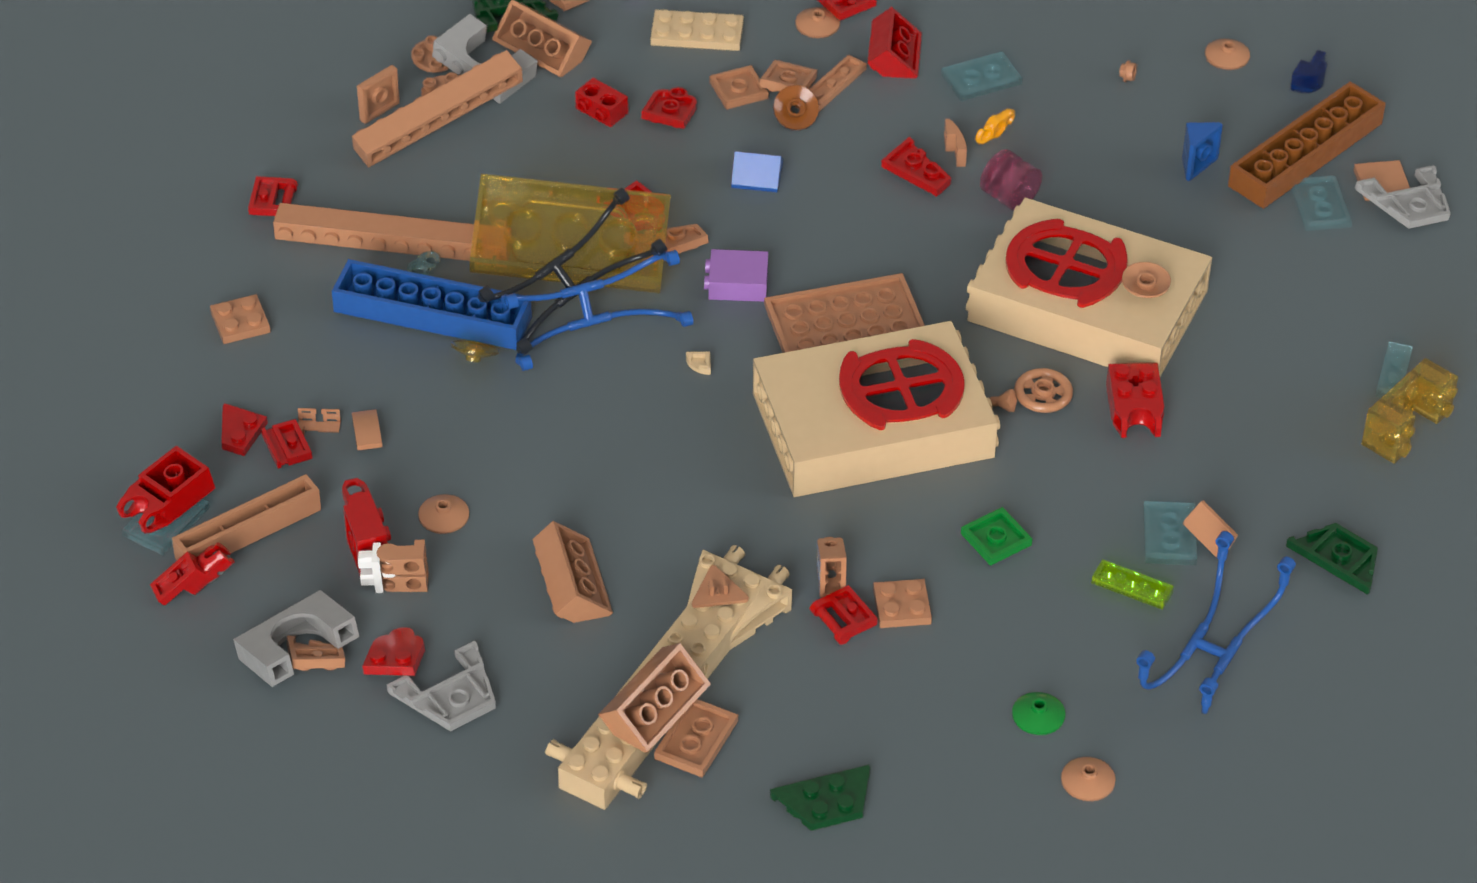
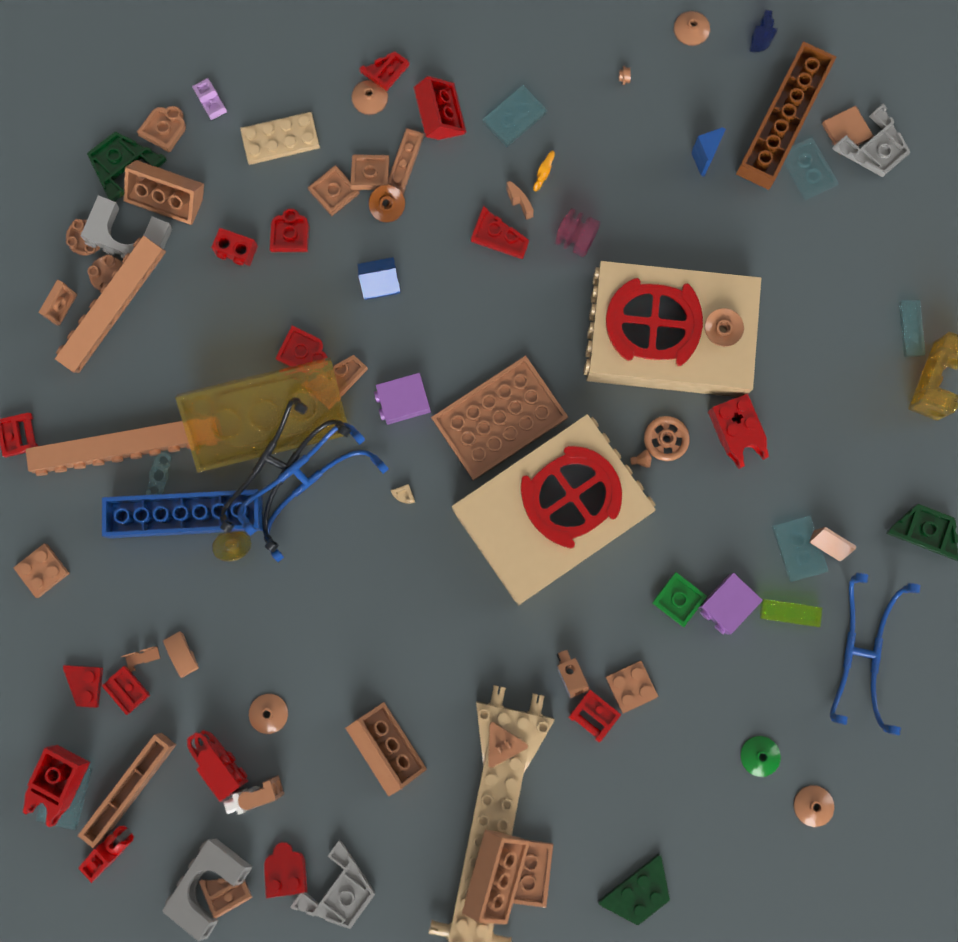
camera: 15 degrees left, 35 degrees up
(1058, 554) = (729, 604): none -> medium lavender brick

